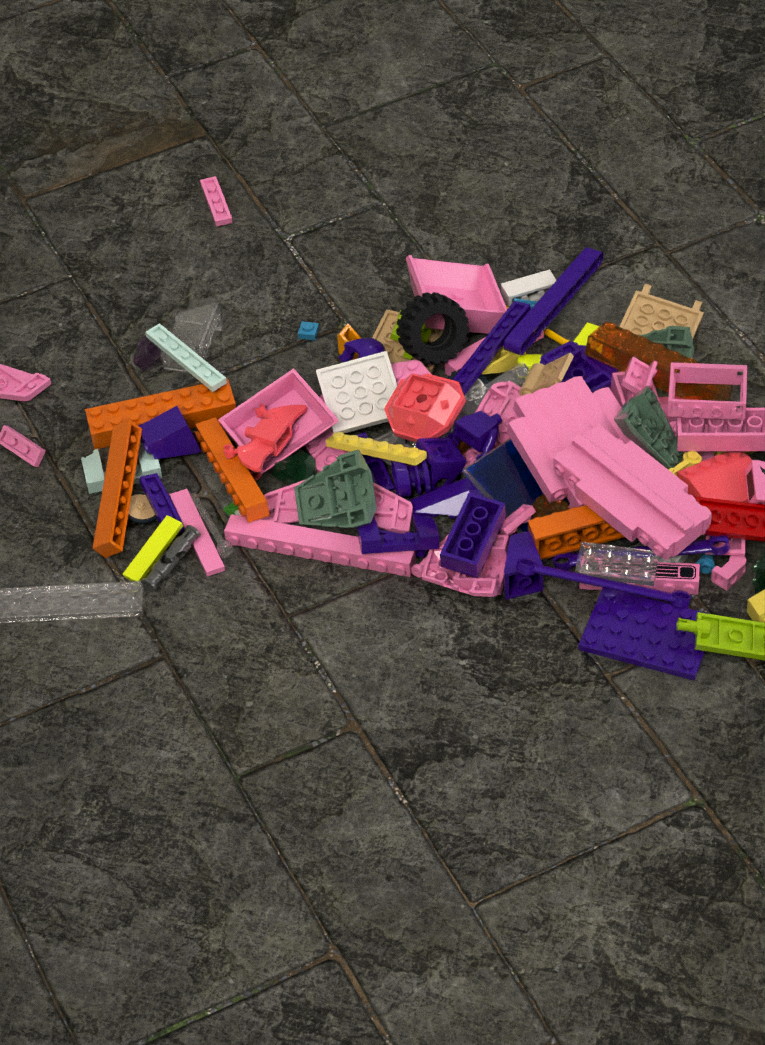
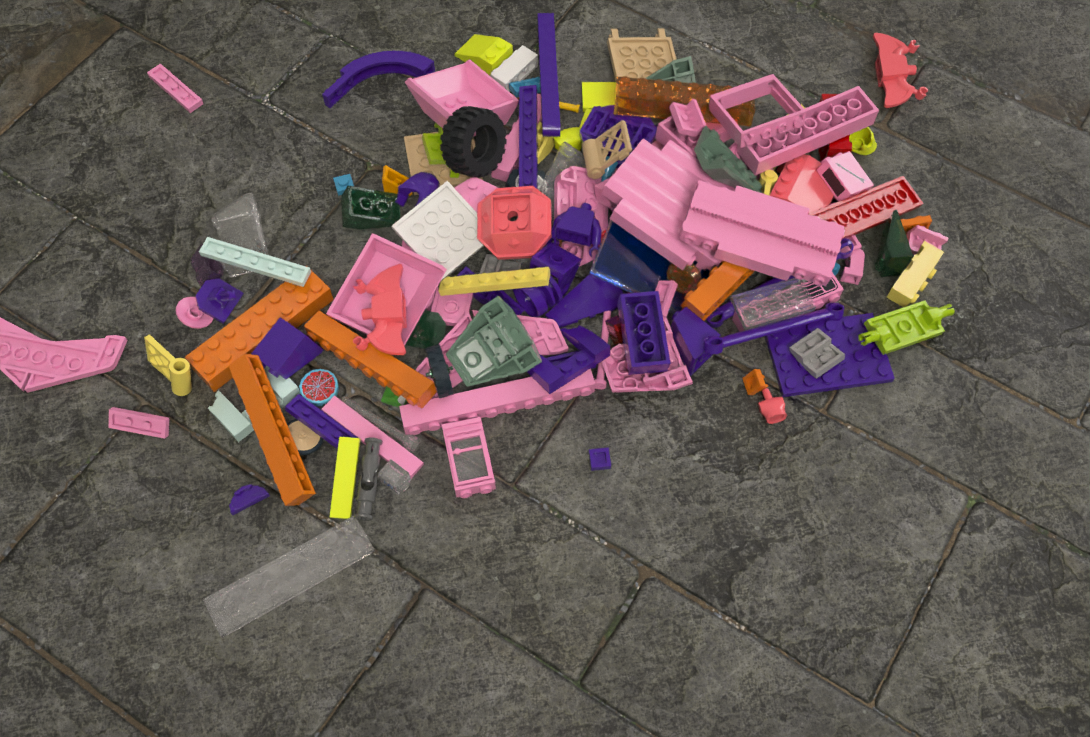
camera: 35 degrees left, 15 degrees up
(68, 534) = (246, 497): none -> dark purple tile
(70, 412) = (173, 369): none -> light yellow piece
(116, 382) = (187, 308): none -> bright pink dish
(141, 379) = (217, 299): none -> dark purple piece
(179, 477) = (319, 386): none -> tile
(193, 566) = (394, 477): none -> clear brick
(264, 577) = (468, 457): none -> bright pink door
(278, 496) = (439, 371): none -> black wheel
(311, 354) = (368, 208): none -> clear green slope
(374, 625) = (599, 459): none -> dark purple plate
(397, 240) = (376, 64): none -> dark purple arch
(512, 264) = (485, 52): none -> neon yellow slope
(558, 623) = (754, 382): none -> orange tile
(559, 652) = (772, 408): none -> coral piece
(632, 622) = (817, 353): none -> light grey slope

